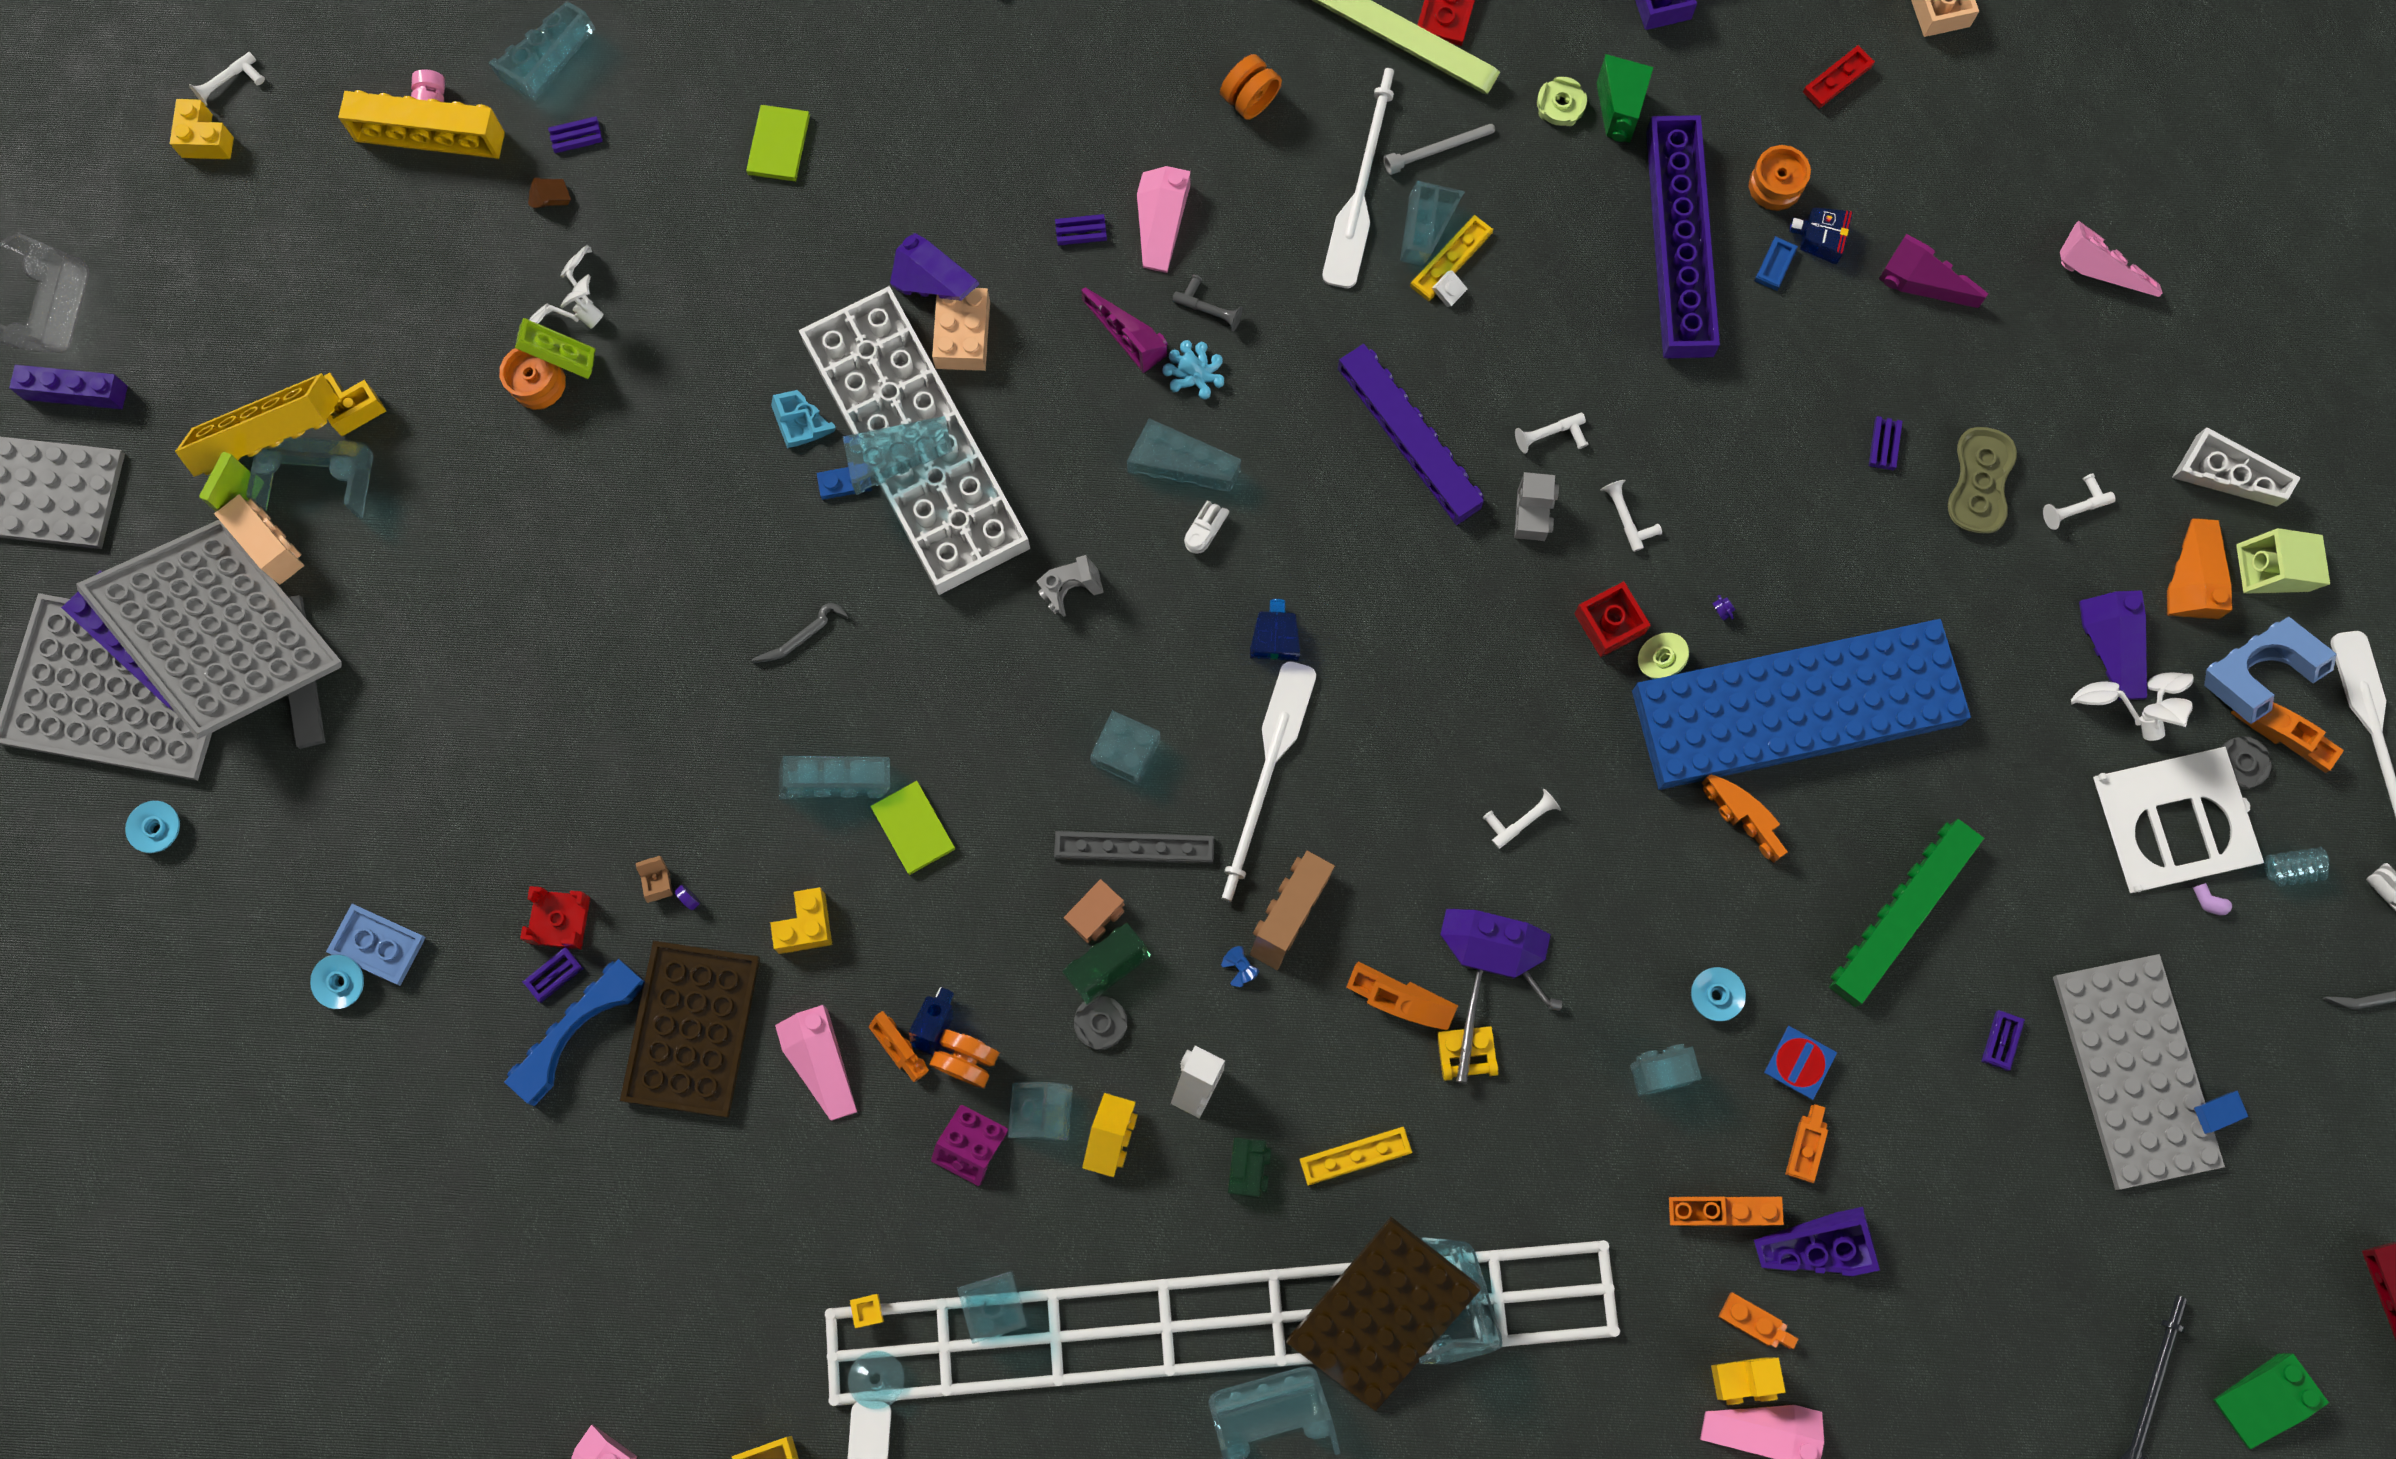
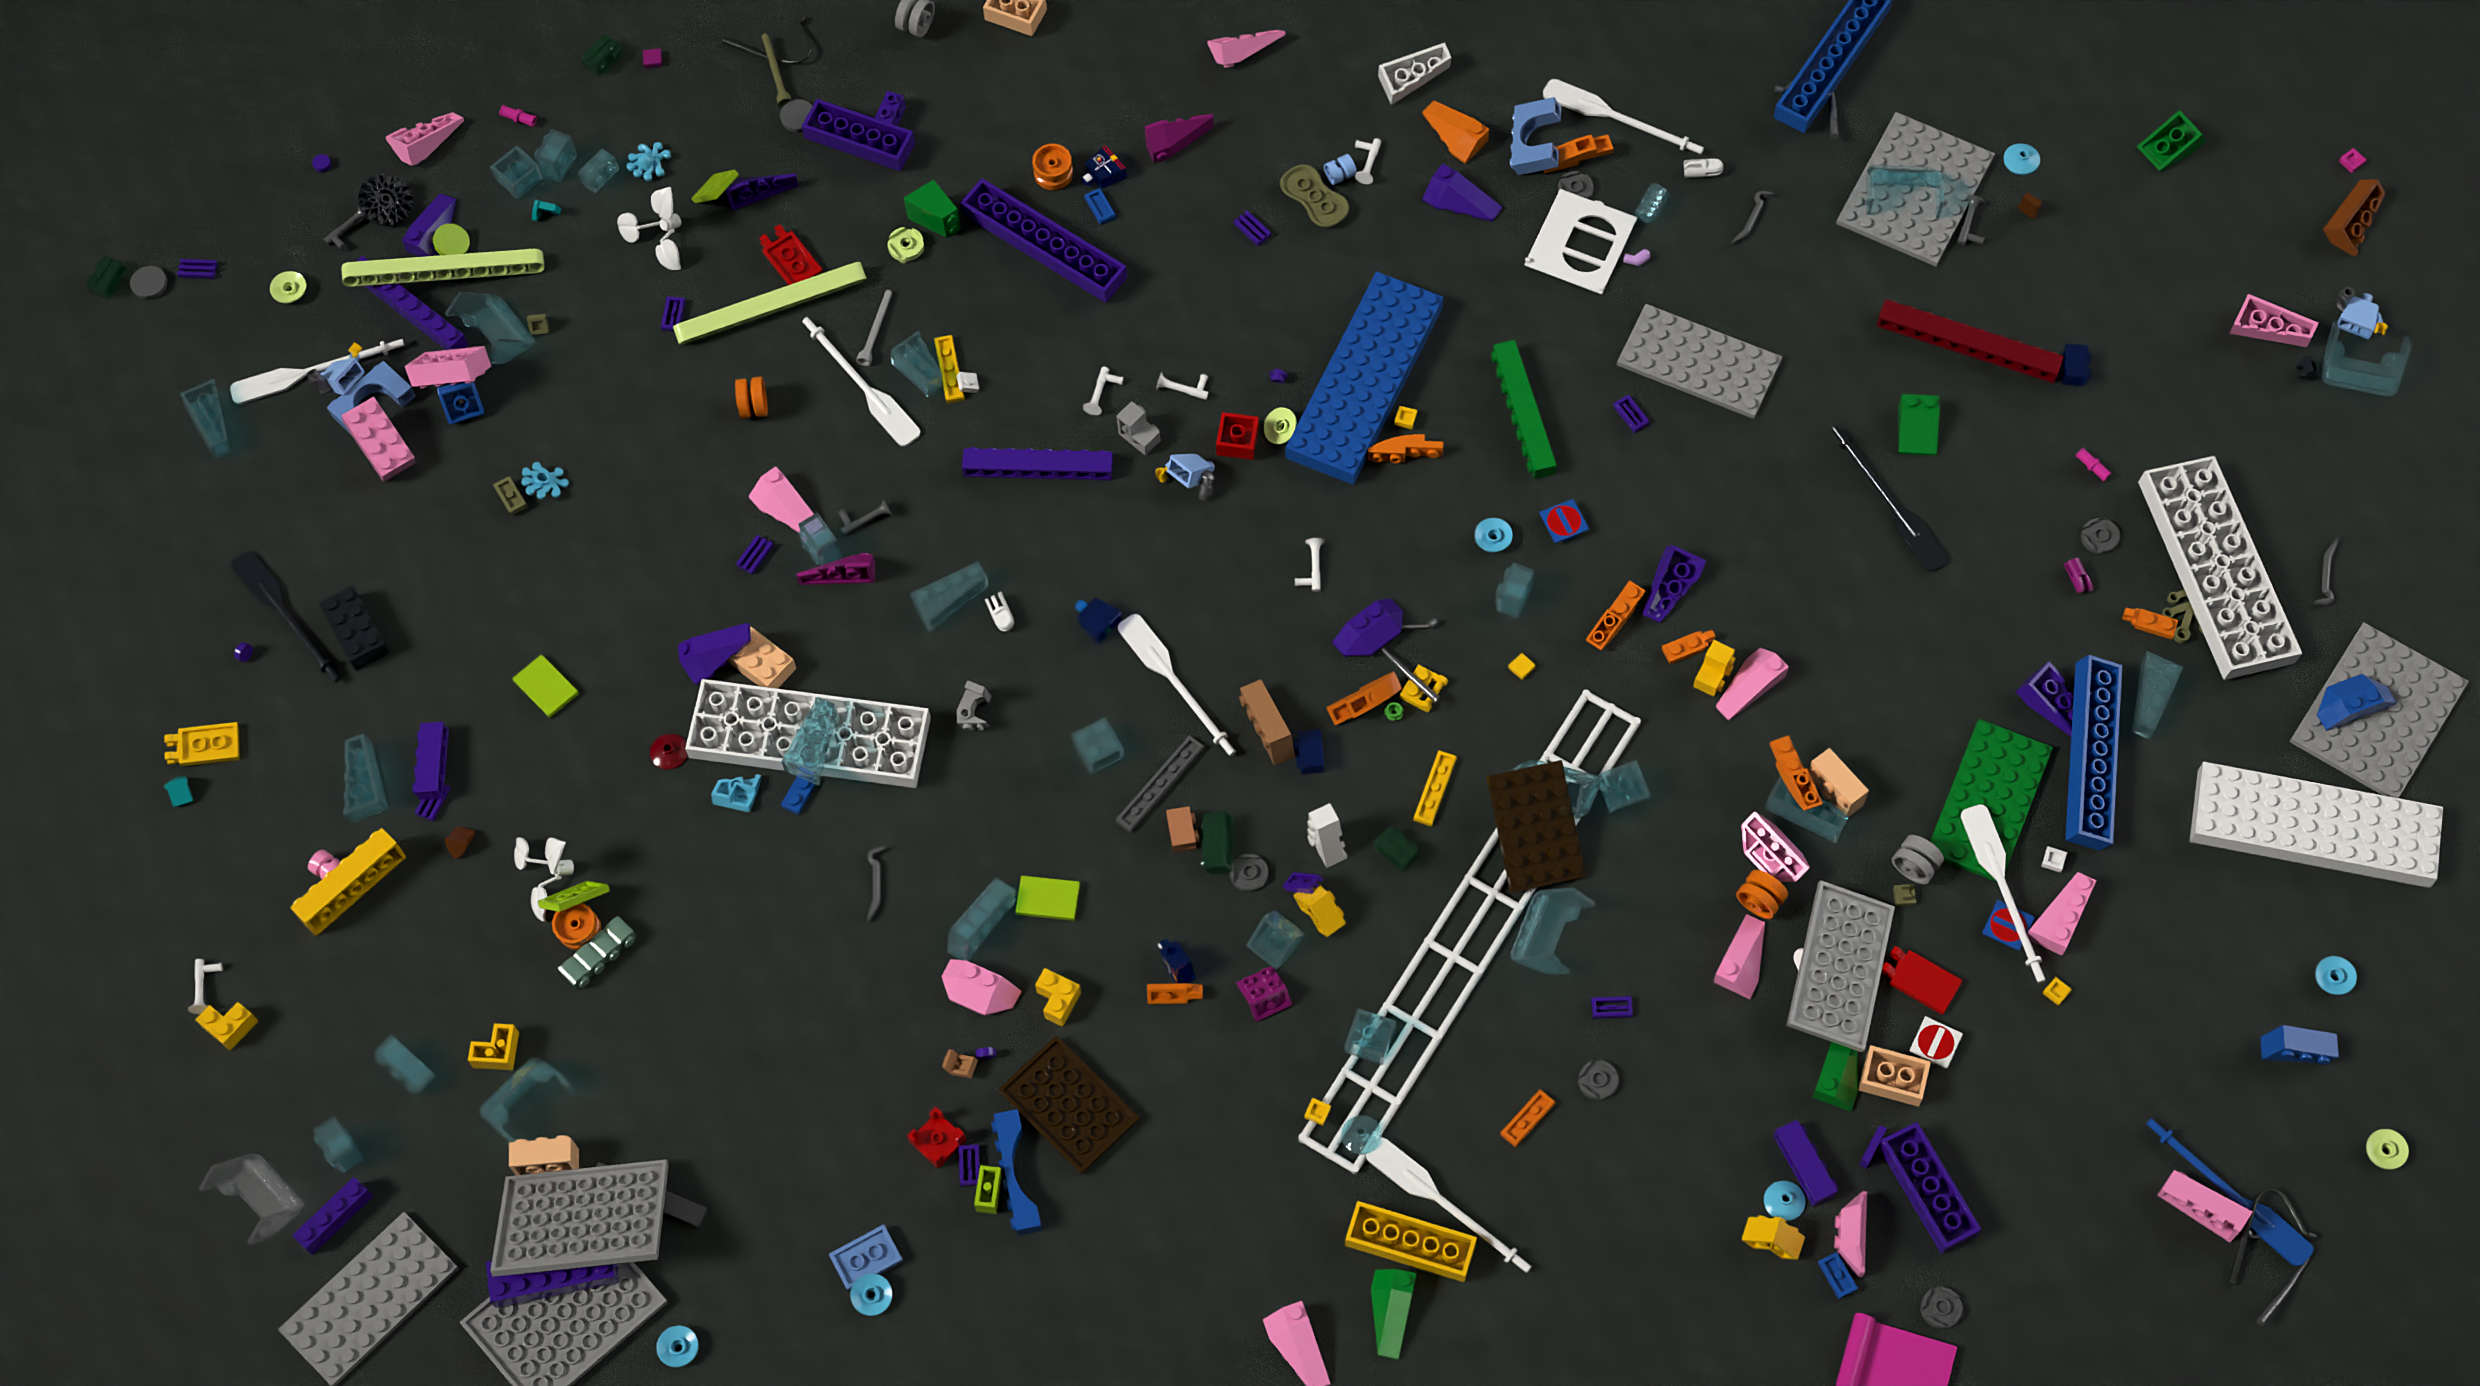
camera: 50 degrees left, 10 degrees down
(140, 333) = (337, 1145): none -> clear light blue brick
(225, 482) = (496, 1149): lime tile -> none
(259, 424) = (471, 1104): yellow brick -> none
(268, 328) = (403, 1065): none -> clear light blue wedge
(521, 419) = (597, 952): none -> sand green brick
(531, 1017) = (988, 1189): none -> lime brick
(611, 99) = (431, 761): none -> dark purple brick
(754, 834) = (978, 988): none -> bright pink wedge
(789, 326) = (668, 759): none -> dark red dish
(815, 1054) = (1140, 1042): bright pink wedge -> none
(966, 1054) = (1212, 956): orange wheel -> none
(1126, 1106) = (1301, 885): none -> dark purple tile
(1140, 280) = (819, 540): none -> clear light blue brick
(1193, 369) = (897, 552): medium azure animal -> none
(1246, 972) = (1283, 772): blue piece -> none
(1291, 984) = (1310, 752): none -> clear blue brick
(1405, 1041) = (1394, 707): none -> bright green plate
(1515, 1378) = (1623, 786): none -> clear light blue brick
(1526, 601) = (1191, 472): none -> light blue torso
(1580, 1146) = (1521, 666): none -> yellow tile
(1787, 786) = (1405, 417): none -> yellow plate
(1808, 1146) = (1612, 550): orange hinge -> none
(1838, 76) = (1018, 95): red plate -> none
(2039, 483) = (1340, 169): none -> light blue wheel
(2170, 710) = (1516, 212): white plant -> none
(2220, 1112) = (1752, 336): blue tile -> none
(2283, 562) = (1483, 87): yellowish green slope -> none

